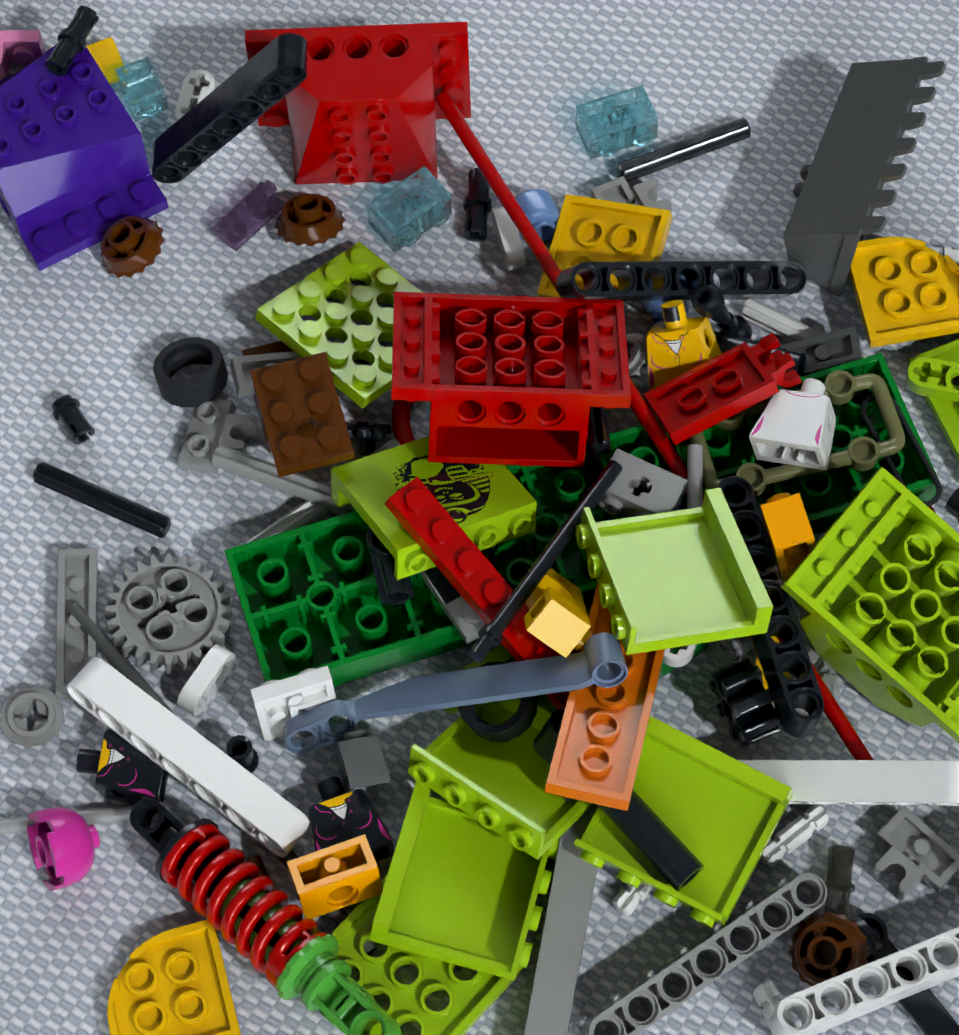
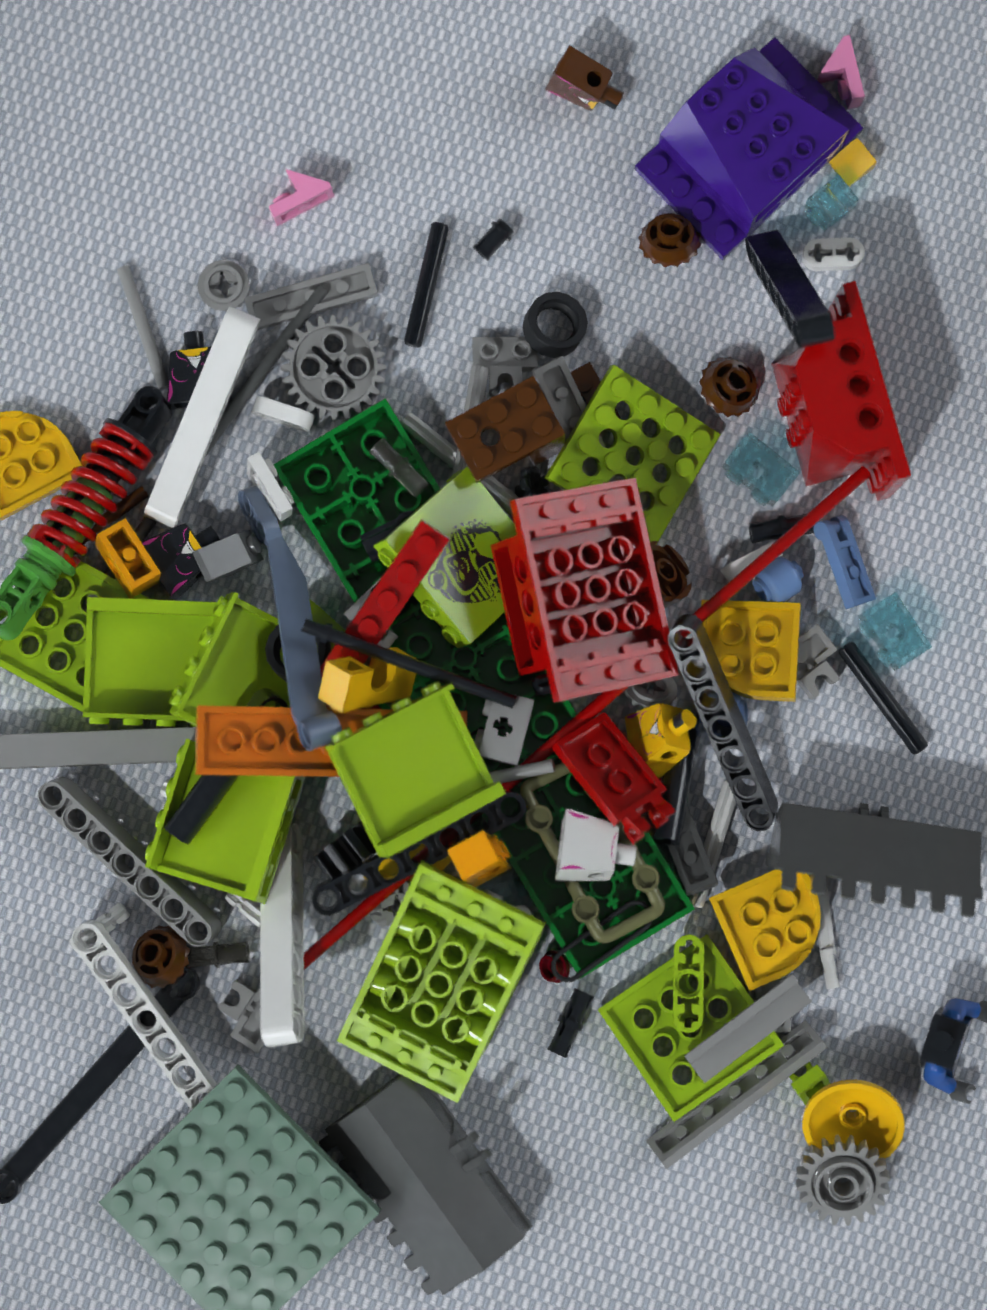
camera: 80 degrees right, 20 degrees up
(62, 845) = (117, 342): dark pink cylinder -> none
(72, 41) = (828, 130): black pin -> none
(243, 752) = (226, 466): black pin -> none
(248, 215) = (724, 331): clear purple hinge -> none
(310, 546) = (398, 467): none -> clear smoke axle
(530, 151) = (845, 560): none -> medium blue plate
(710, 304) = (702, 752): black piece -> none

